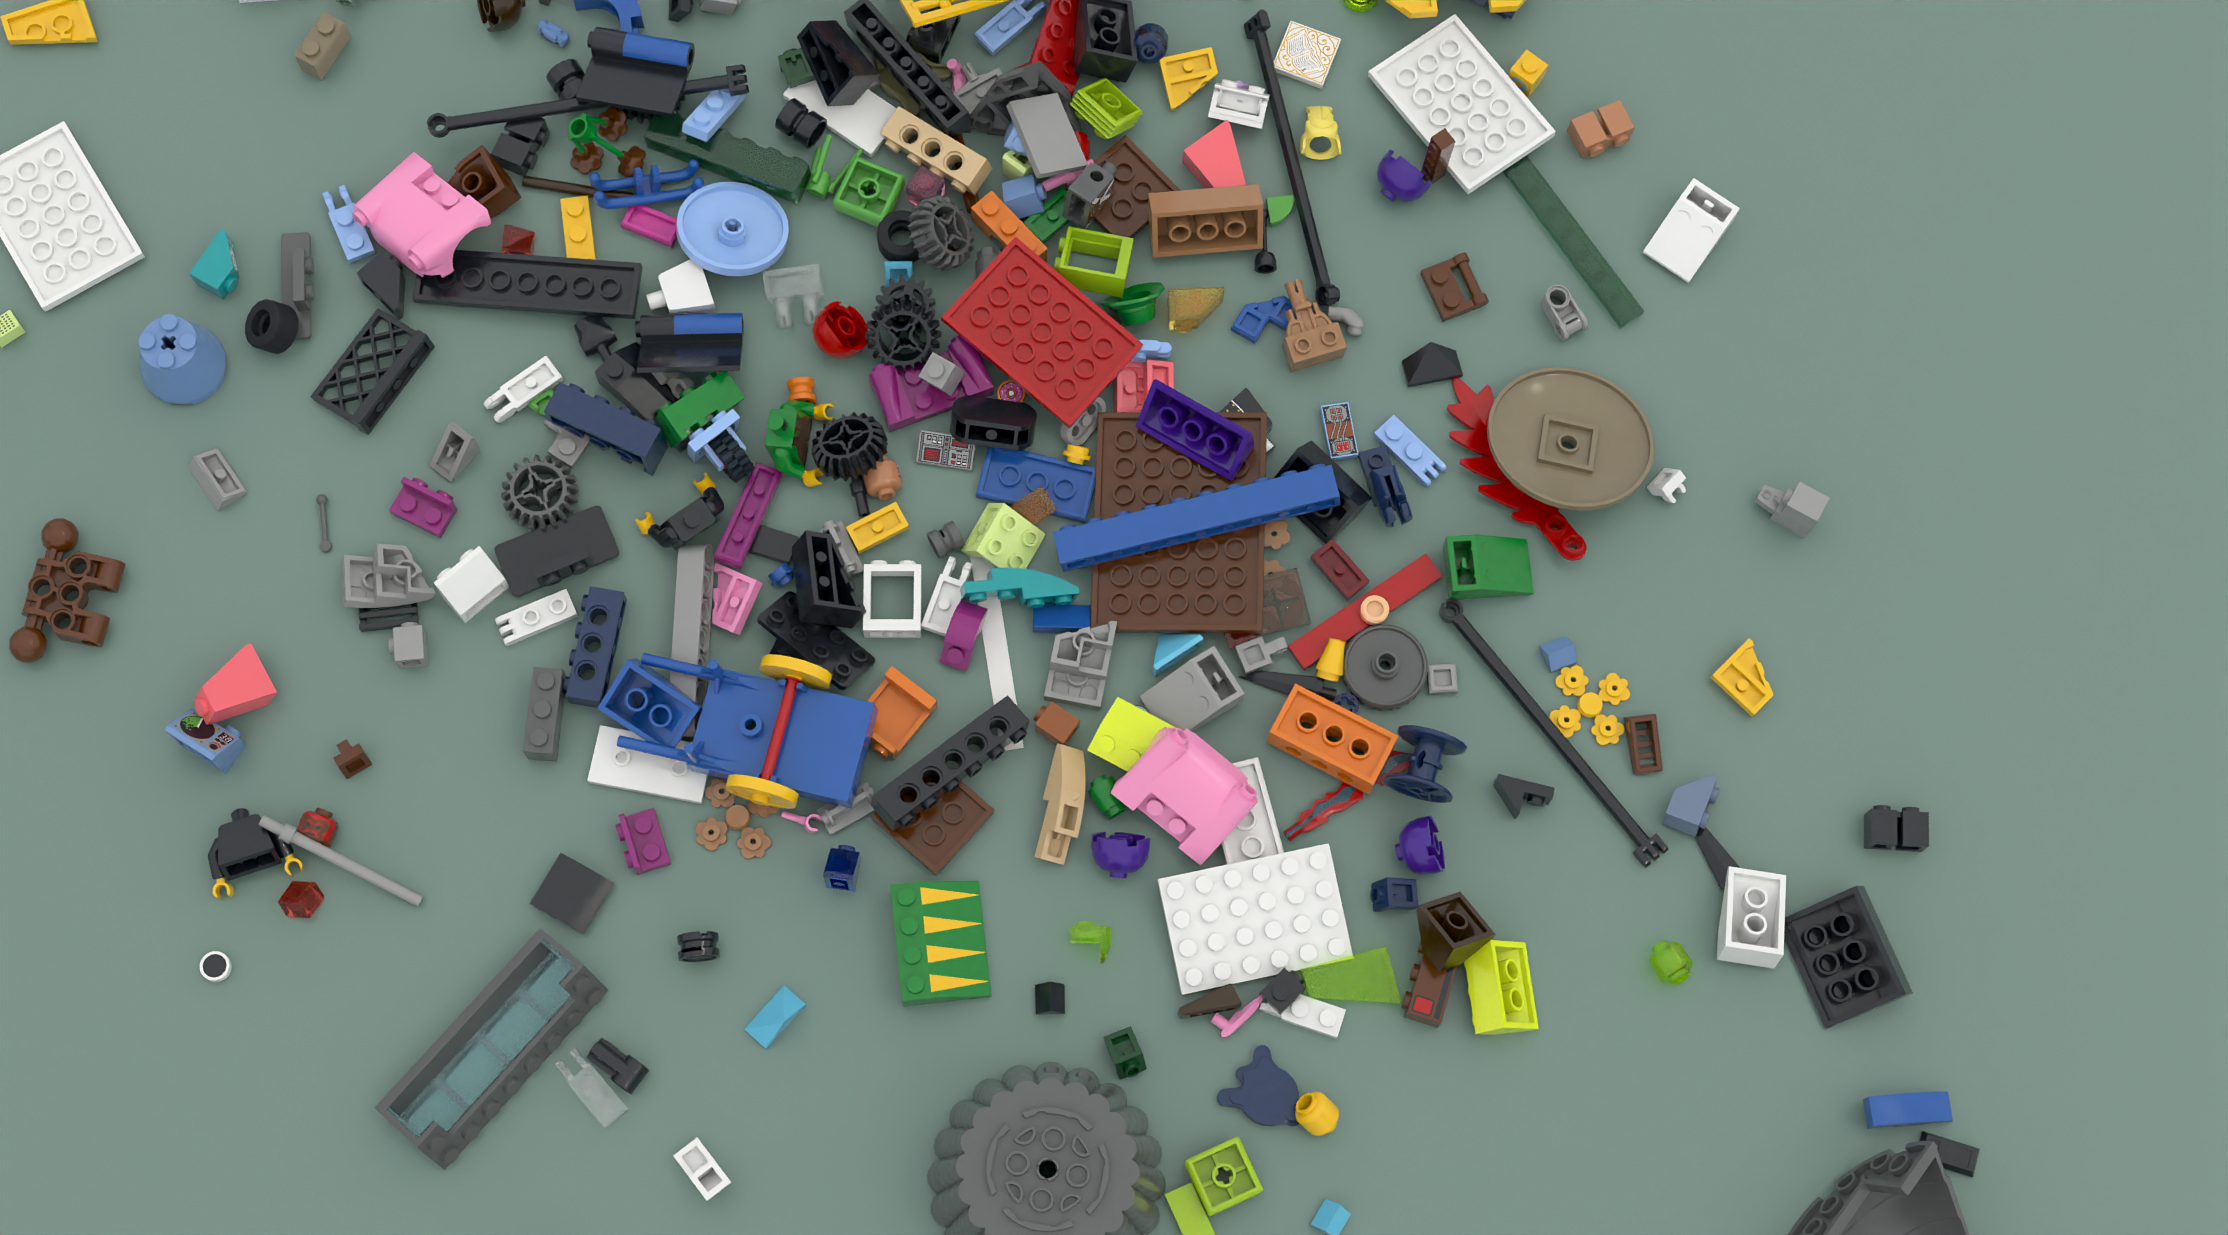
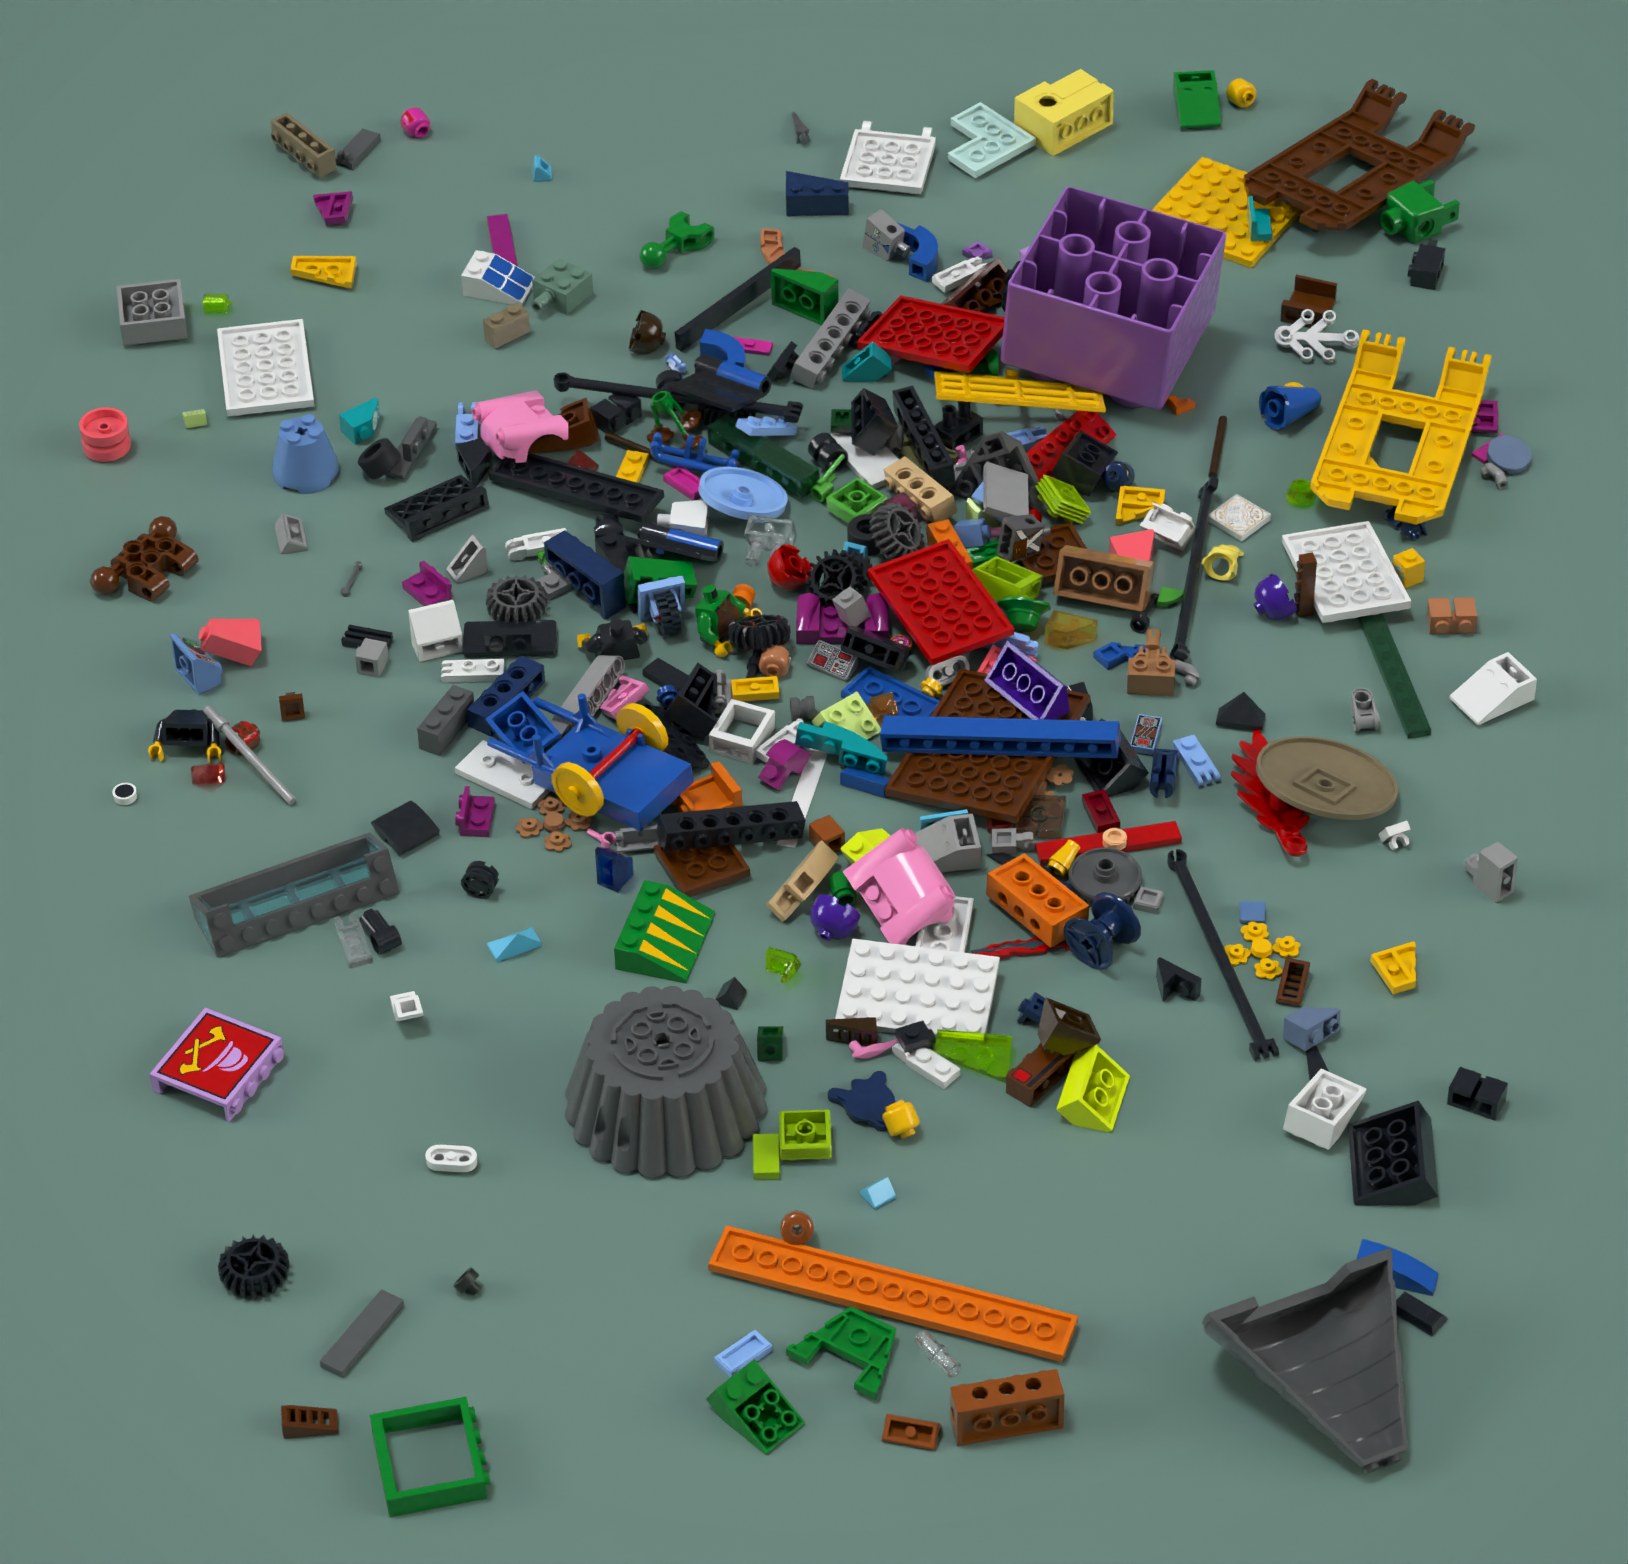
camera: 30 degrees right, 30 degrees down
(384, 579) = (382, 617): light grey slope -> none
(748, 515) = (661, 654): magenta tile -> none
(1080, 666) = (866, 804): light grey slope -> none
(1421, 847) = (1074, 984): dark purple cylinder -> none
(1446, 291) = (1276, 677): reddish brown plate -> none
(1486, 566) = (1218, 838): green slope -> none
(1671, 962) = (1242, 1117): clear neon green head -> none

